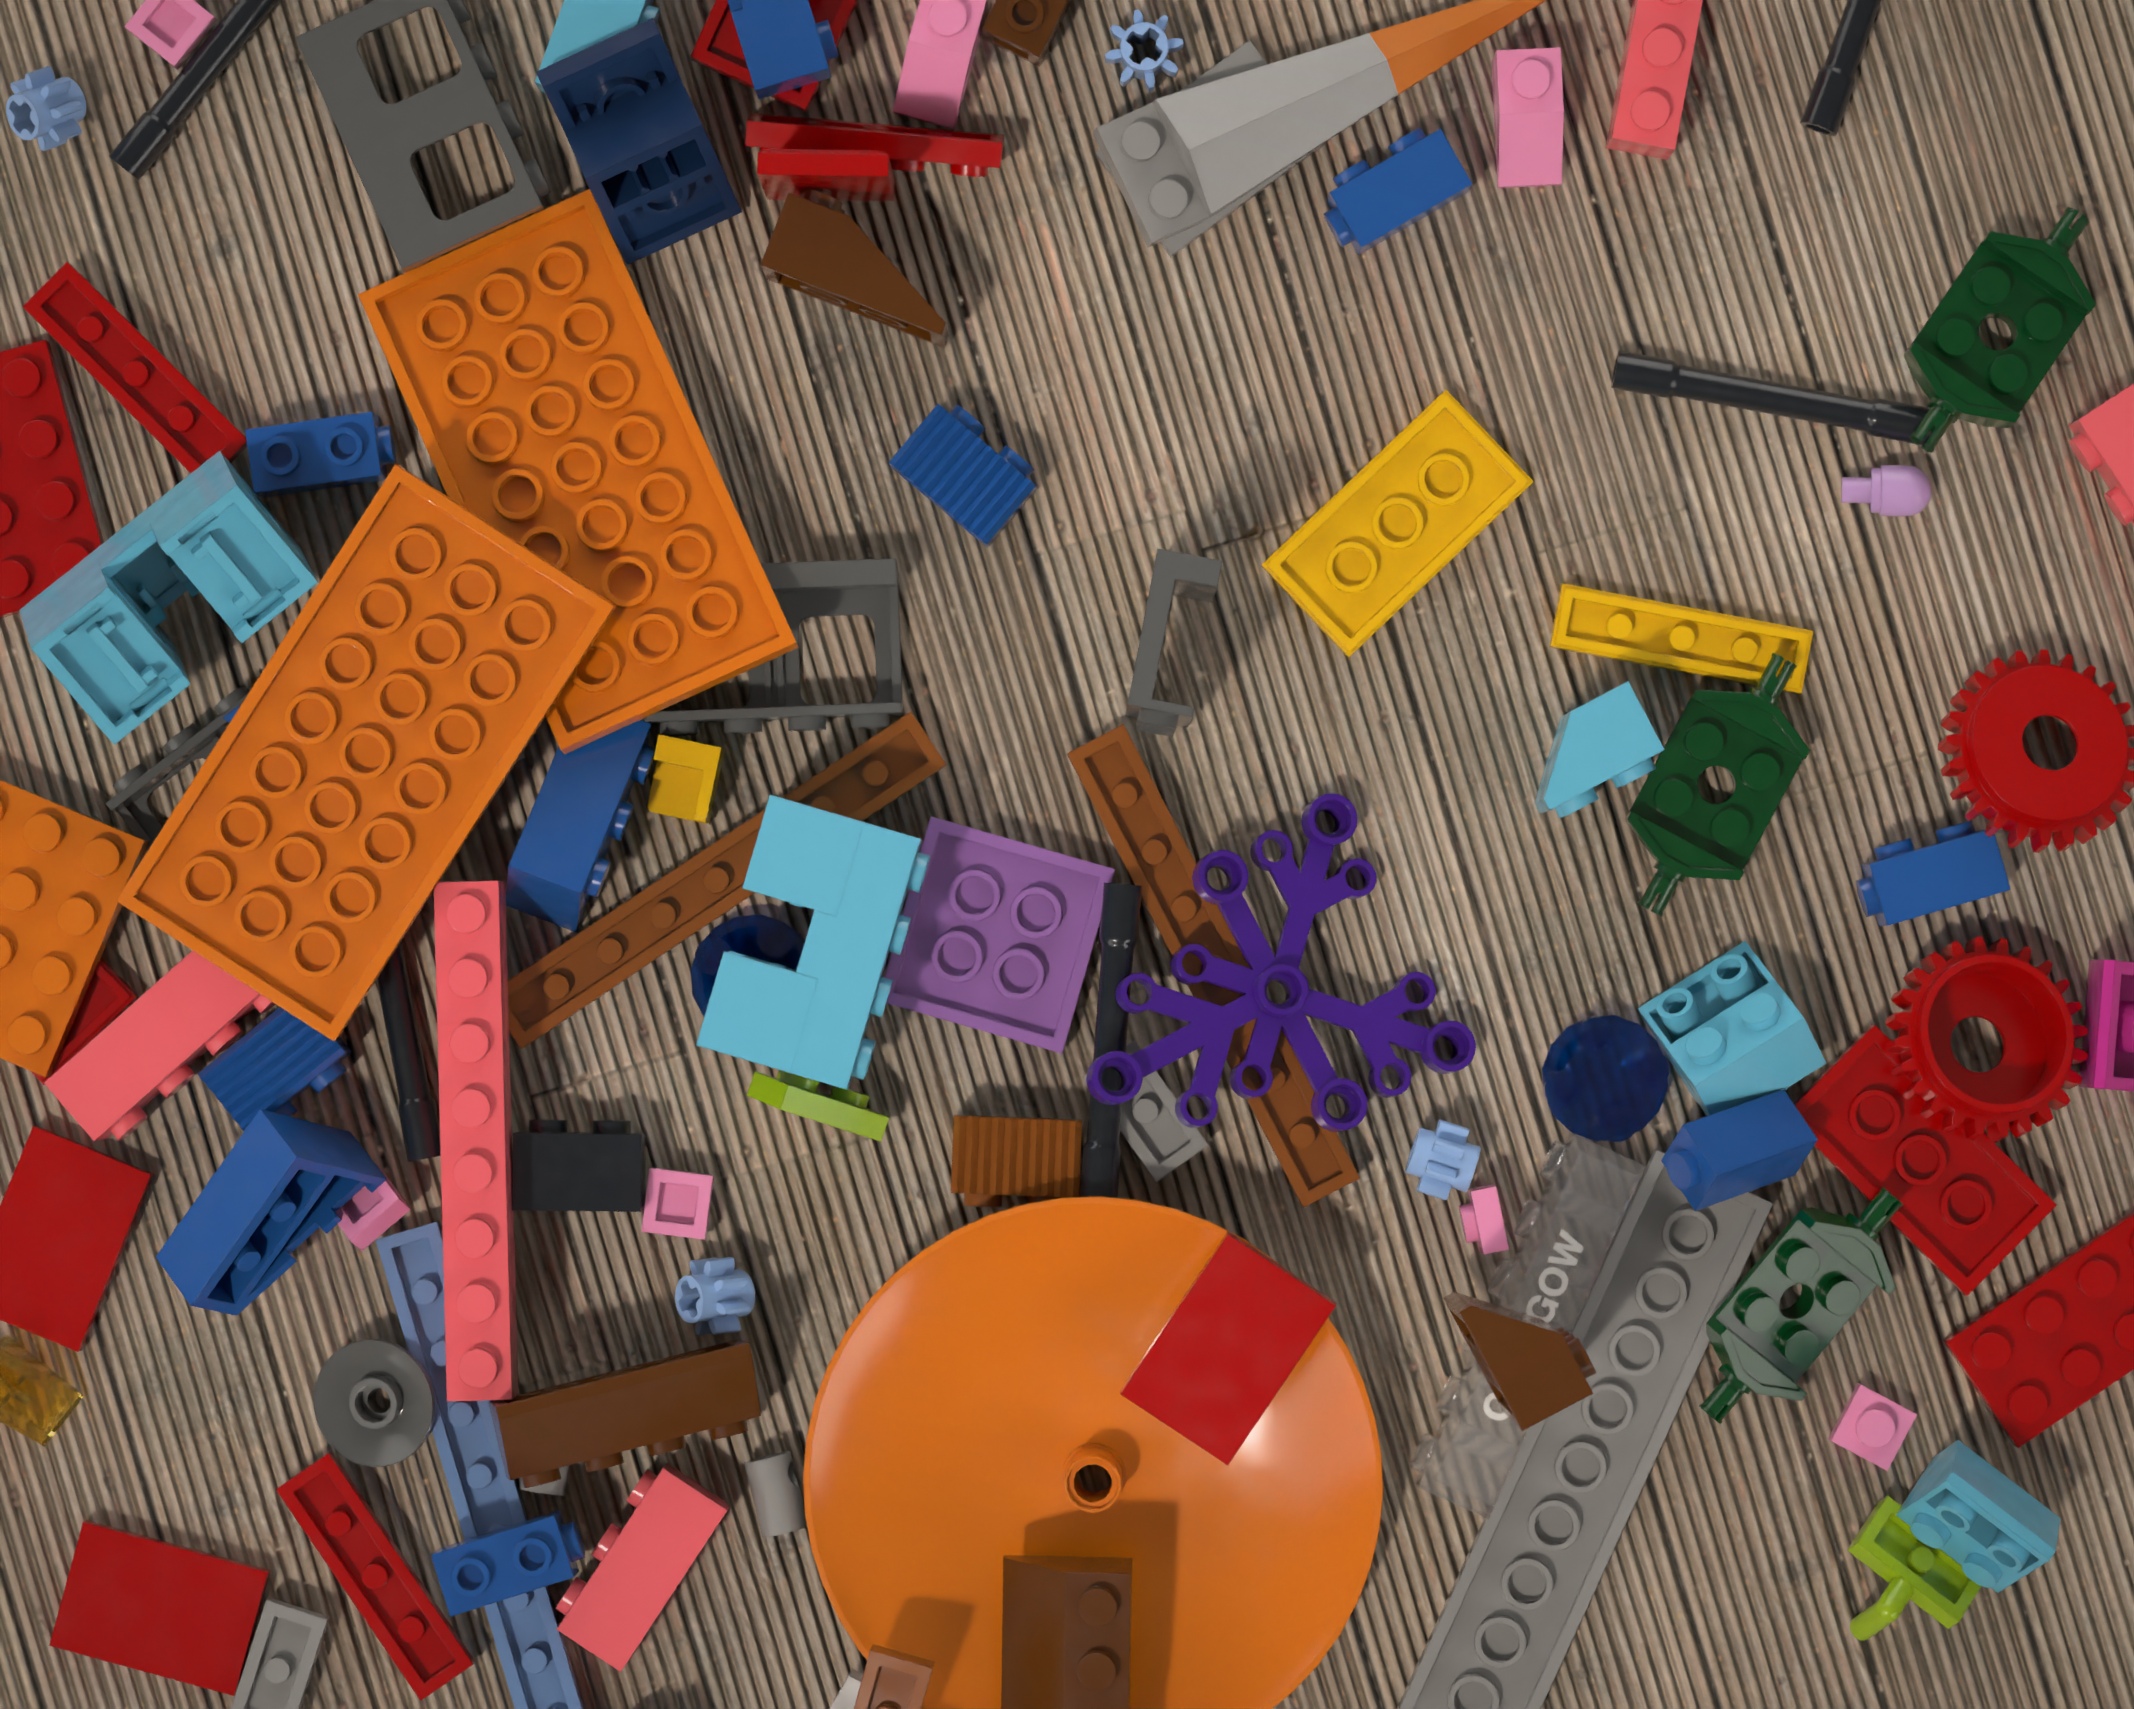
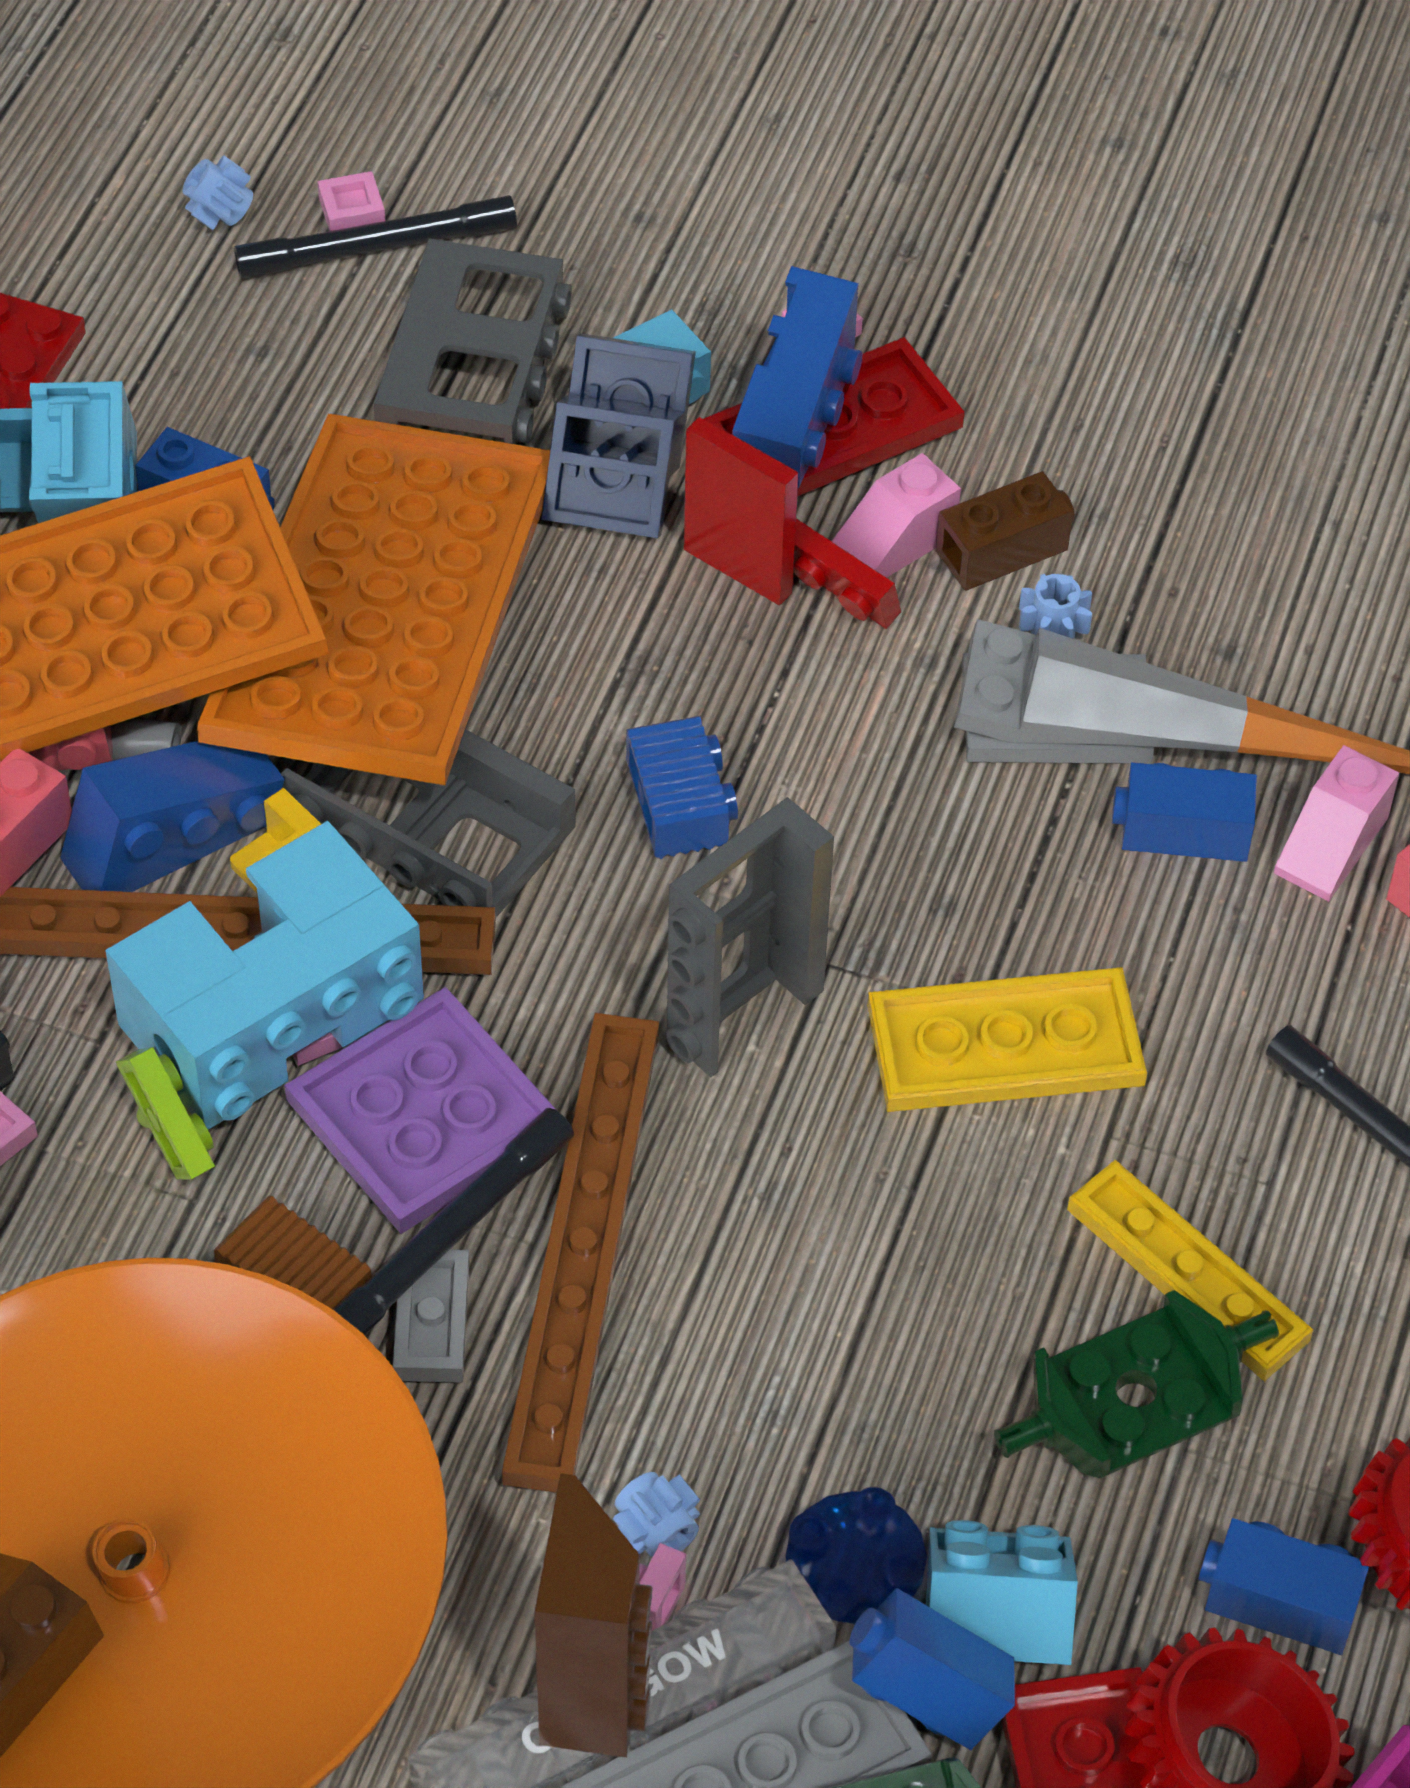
camera: 30 degrees right, 35 degrees down
(133, 370) = (125, 351): red plate -> none
(834, 261) = (696, 588): reddish brown slope -> none
(1214, 1025) = (541, 1262): dark purple plant -> none
(1228, 1348) = (336, 1499): red tile -> none
(1595, 744) = (1043, 1272): medium azure slope -> none

